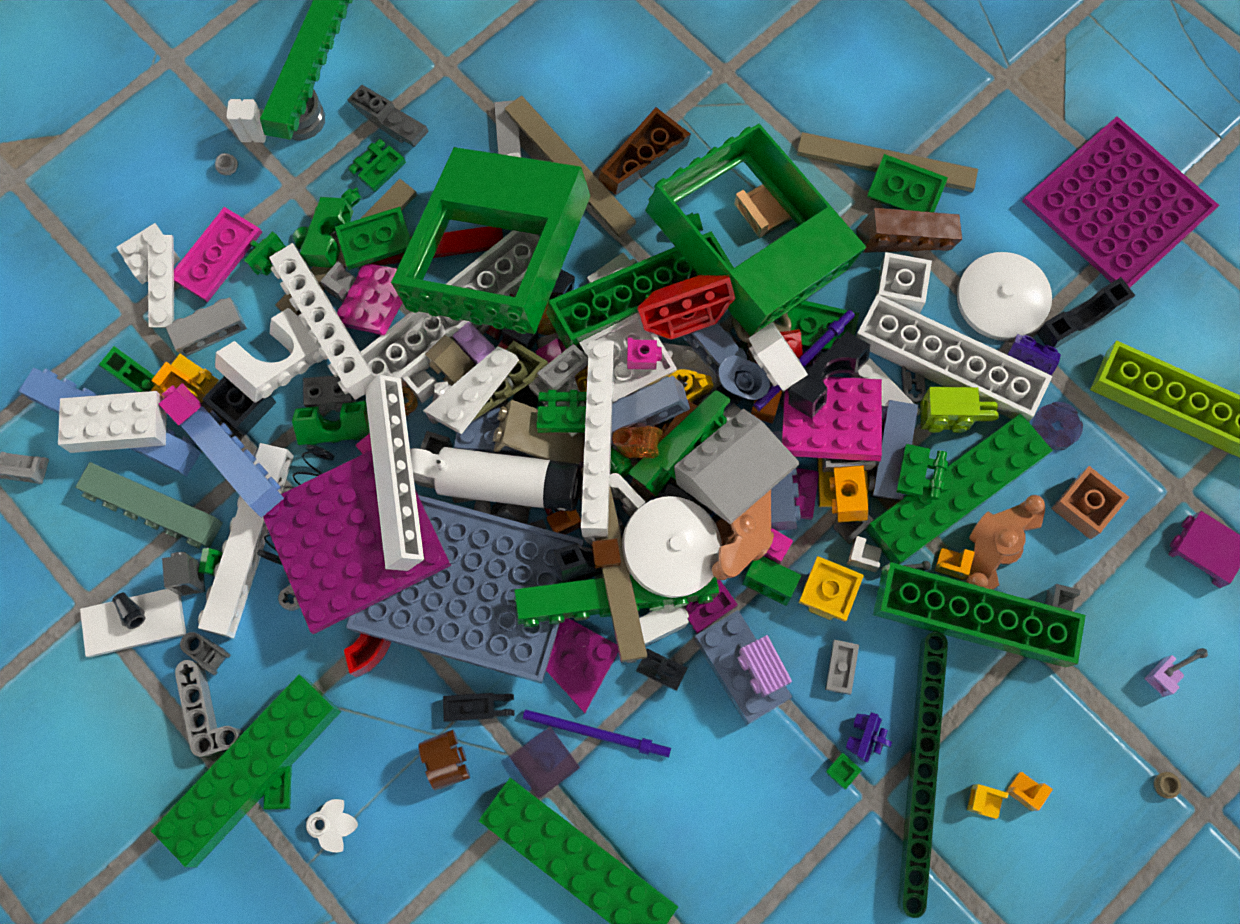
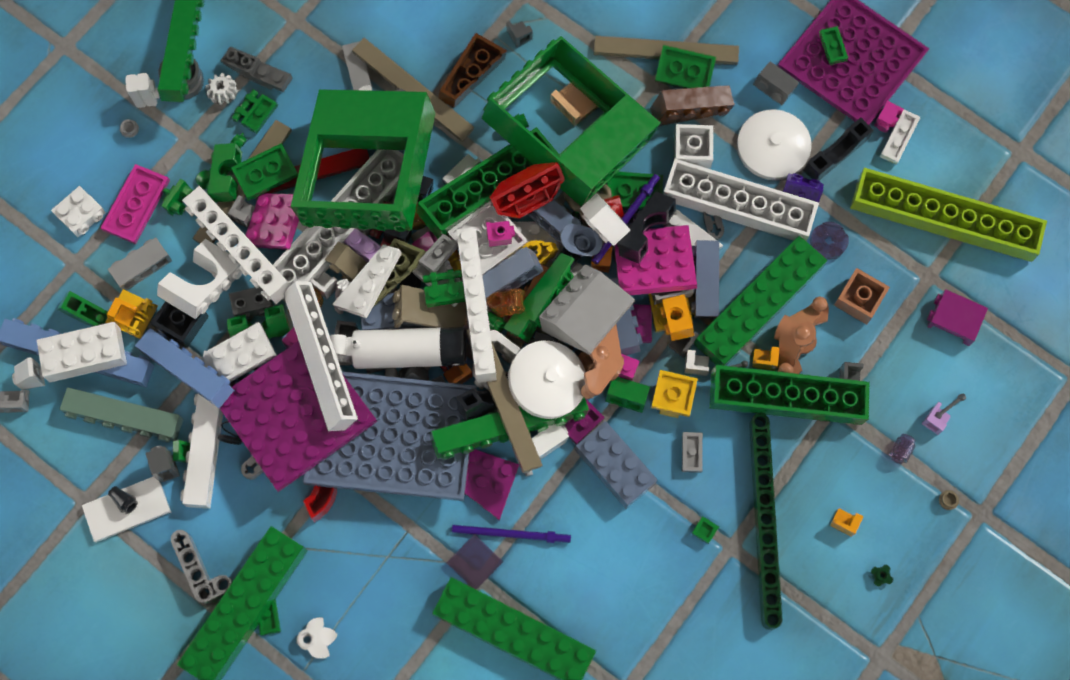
camera: 15 degrees left, 0 degrees up
(45, 439) = (28, 374): none -> white slope
(160, 280) = (95, 232): white plate -> none
(179, 403) = (133, 329): dark pink brick -> none
(207, 655) = (193, 523): dark grey piece -> none
(304, 453) = (242, 352): none -> white plate
(342, 133) = (226, 84): none -> white gear
(443, 760) = (397, 572): reddish brown brick -> none
(475, 707) = (413, 529): black hinge -> none
(606, 553) = (497, 392): reddish brown tile -> none
(662, 670) = (554, 476): black hips -> none
(710, 116) = (519, 33): none -> dark grey panel
(764, 666) = (632, 459): lavender brick -> none
(870, 726) = (720, 492): dark purple hips -> none
(914, 469) = (723, 292): green plate -> none
(954, 409) = (748, 240): lime brick -> none
(986, 800) = (816, 534): yellow panel -> none
(1018, 220) = (776, 83): none -> dark grey brick
(1059, 875) = (878, 580): none -> dark green plate
(1098, 184) = (833, 45): none -> green plate
(1116, 708) = (902, 449): none -> clear purple brick
(1155, 282) = (888, 116): none -> dark pink brick
(1166, 309) = (900, 137): none -> white plate

